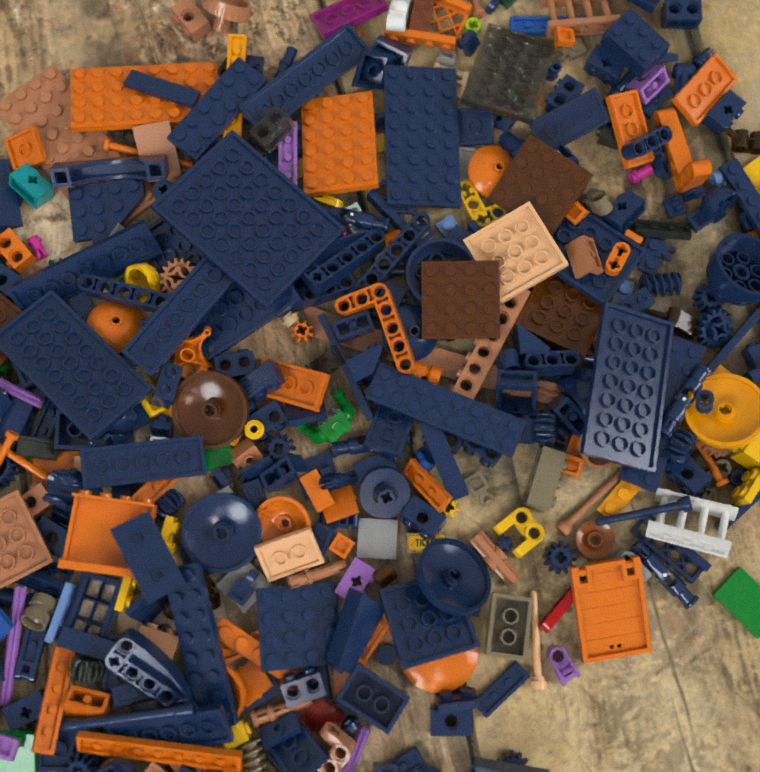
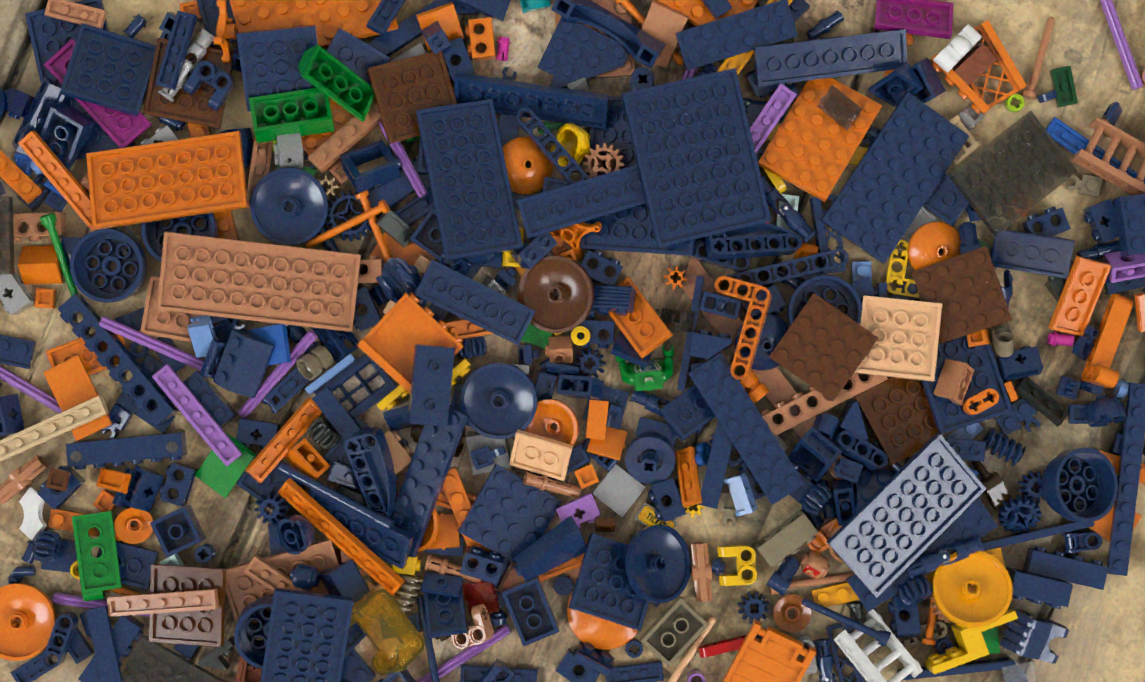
camera: 35 degrees right, 10 degrees up
(276, 131) = (771, 94): clear smoke brick -> none
(290, 319) = (672, 260): tan plate -> none
(338, 480) = (620, 423): dark blue pin -> none
(339, 109) = (840, 107): none -> clear smoke hinge
(469, 43) = (1000, 117): dark blue tile -> none
(480, 468) = (741, 494): none -> hinge
(485, 672) = (637, 643): none -> dark blue bush
(553, 71) = (1054, 196): dark blue pin -> none
(553, 386) = (848, 470): none -> dark blue bracket
(564, 37) = (1085, 173): orange tile -> none
(565, 516) = (782, 577): none -> dark blue piece
(583, 485) = (814, 565): none -> nougat head
(645, 499) = (856, 611): none -> pearl dark grey bush
(646, 143) = (1083, 319): dark blue beam -> none
(704, 396) = (955, 574): dark blue bush -> none

